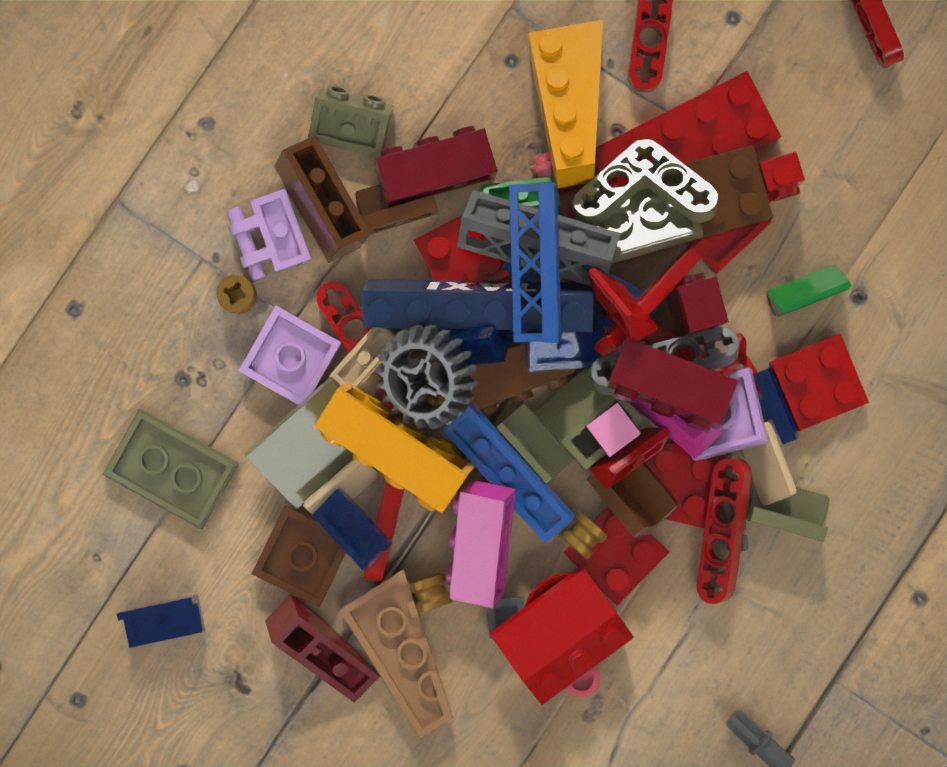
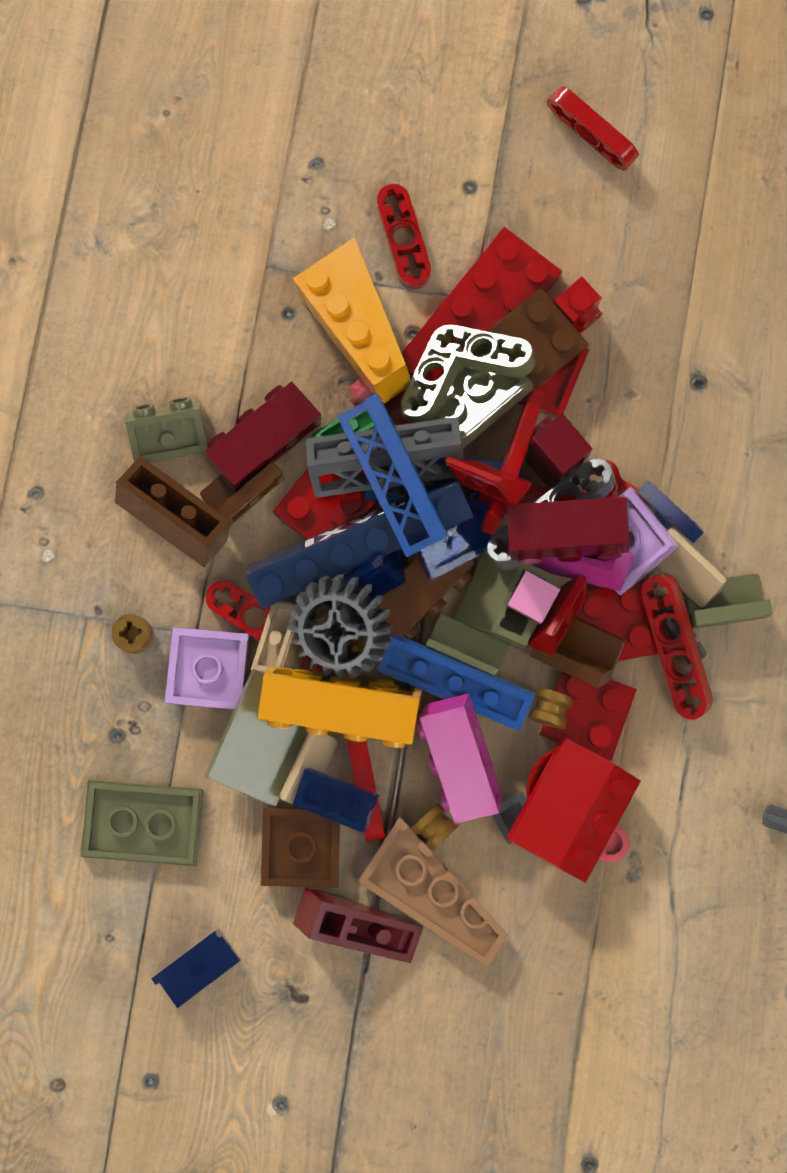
camera: 20 degrees left, 5 degrees down
(280, 232) = (146, 558): lavender plate -> none
(807, 290) = (650, 396): green slope -> none
(819, 382) = (699, 474): red plate -> none

